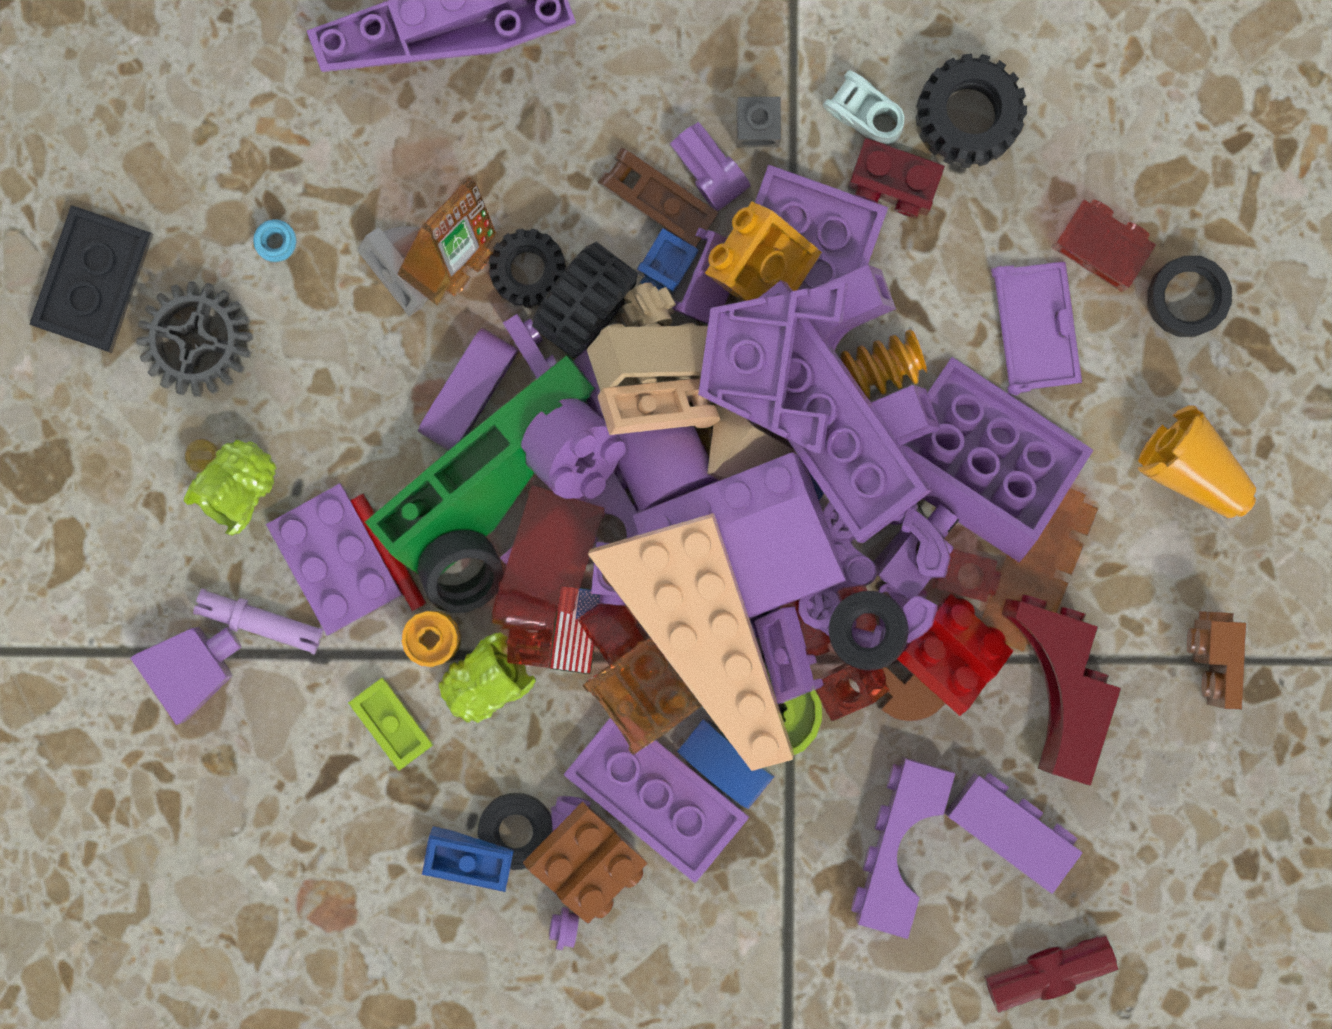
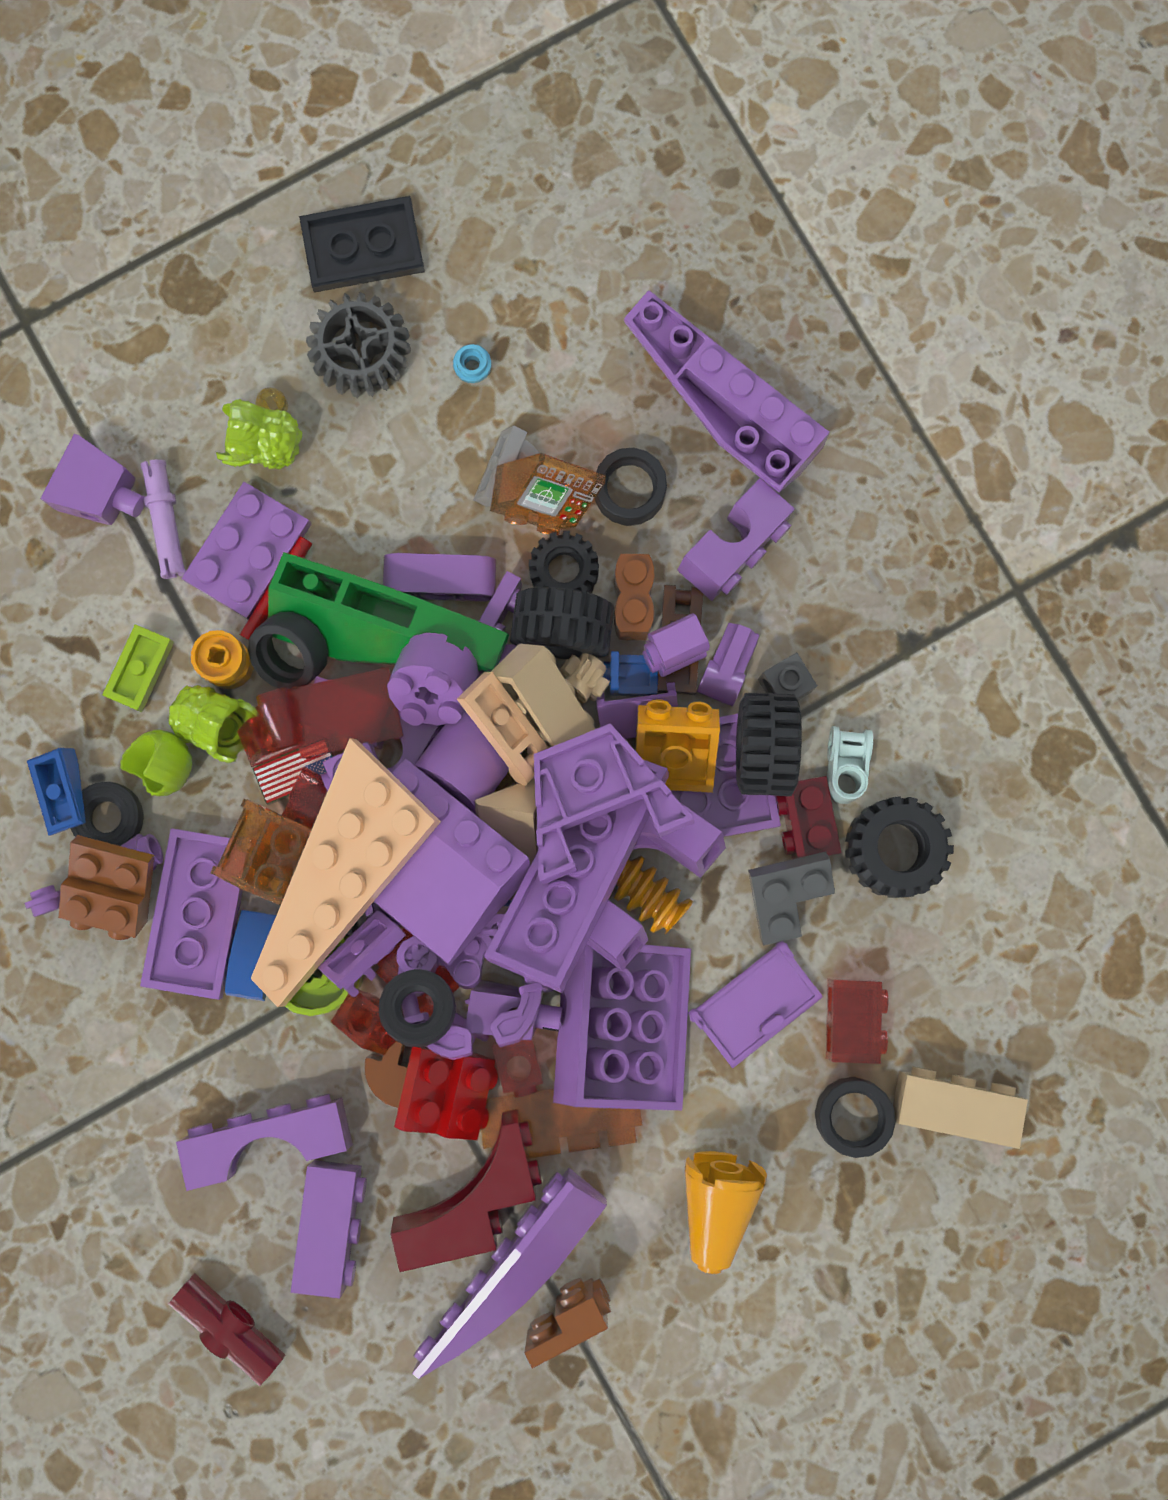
camera: 65 degrees right, 5 degrees down
(494, 751) = (160, 762): none -> lime hair
(498, 130) = (648, 463): none -> black tyre
(583, 212) = (633, 589): none -> dark orange brick
(587, 56) = (716, 563): none -> medium lavender arch
(669, 206) = (676, 645): none -> medium lavender brick
(811, 175) = (768, 744): none -> black tyre
(945, 240) = (780, 887): none -> dark grey plate
(1149, 679) = (519, 1270): none -> medium lavender wedge
(1235, 196) = (960, 1107): none -> tan brick

